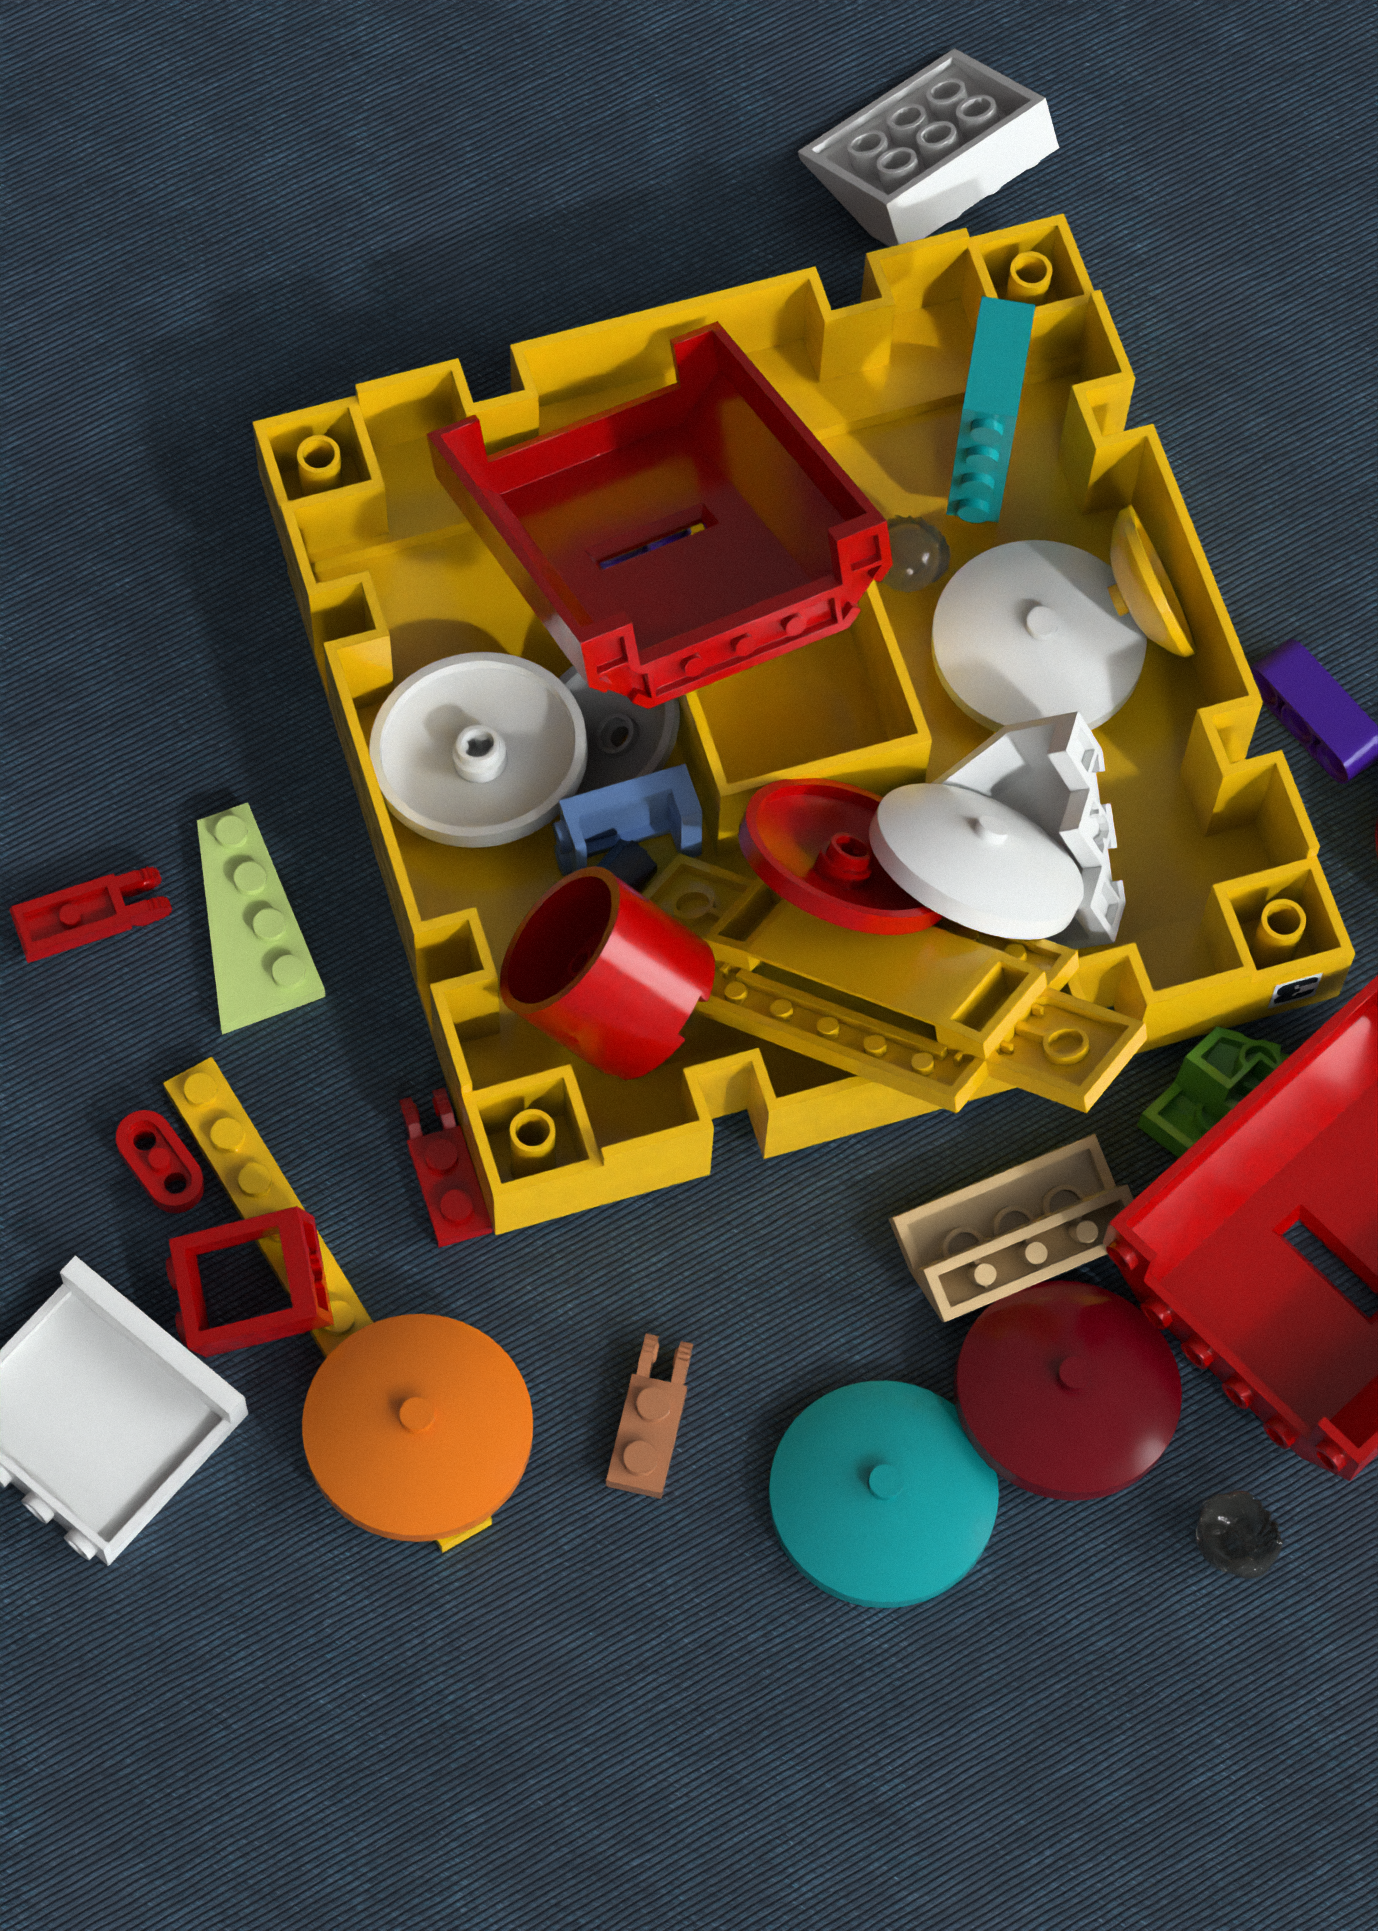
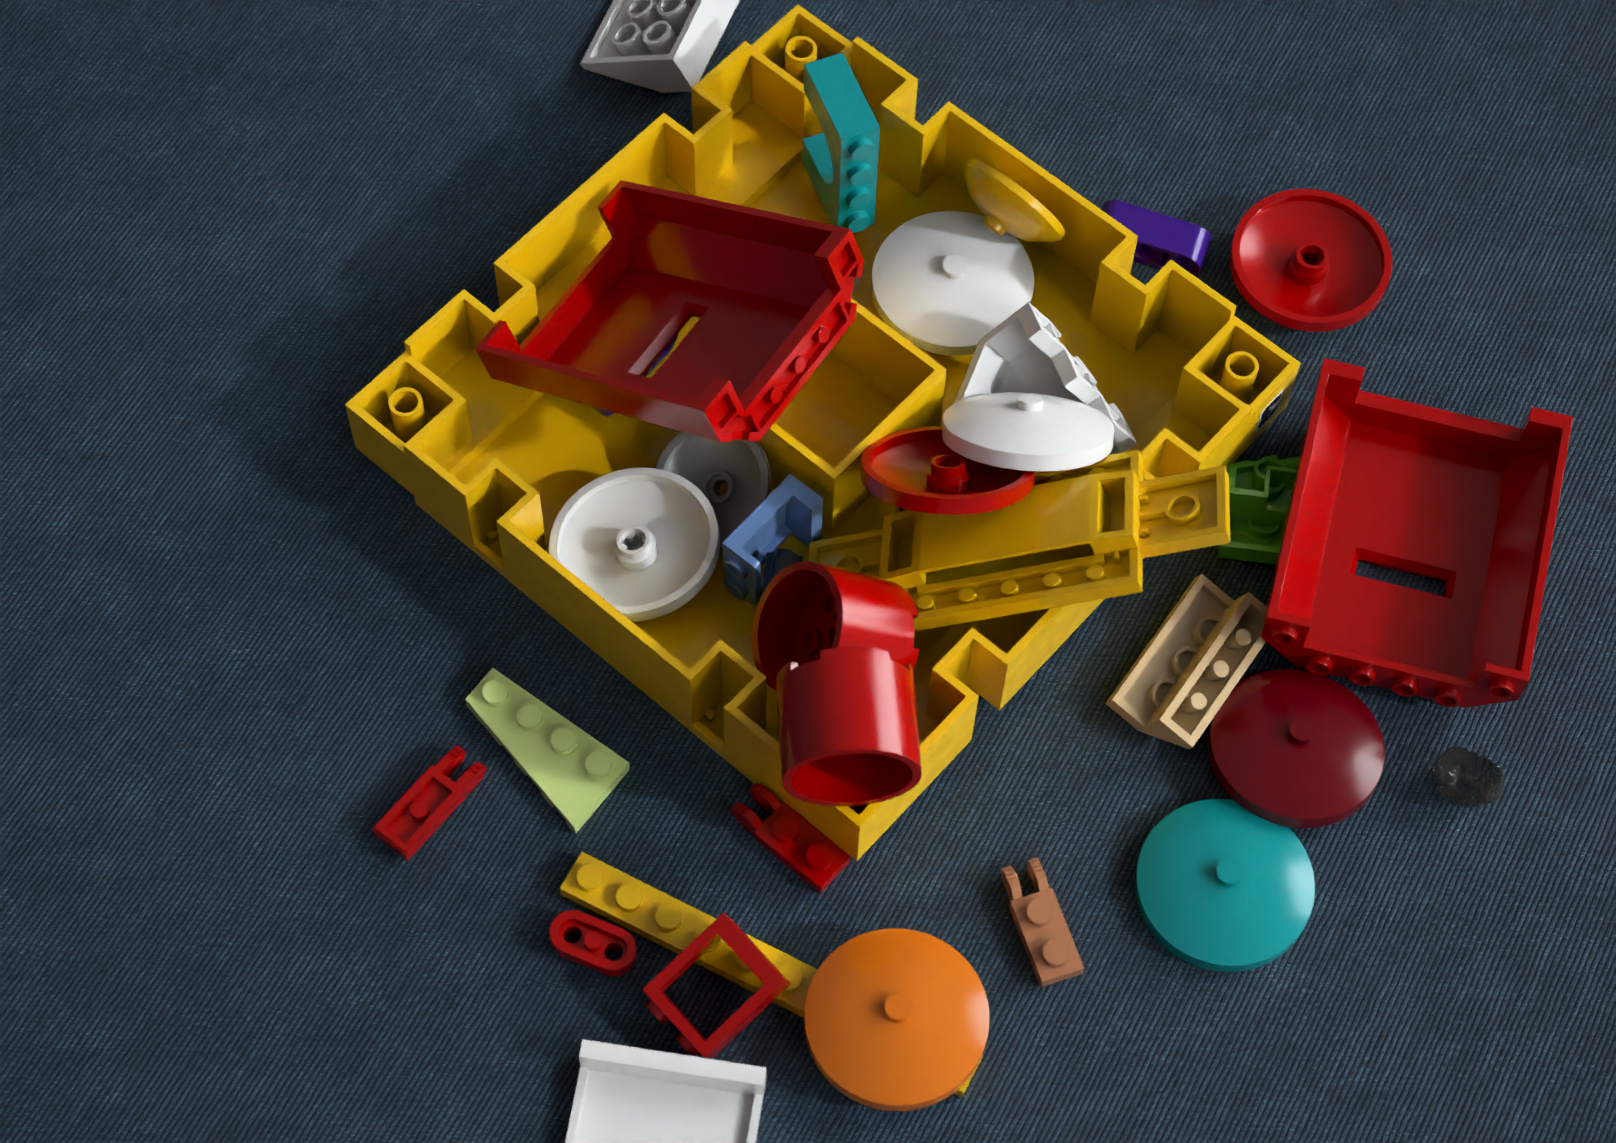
camera: 30 degrees left, 5 degrees down
(530, 1081) = (848, 728): none -> red brick

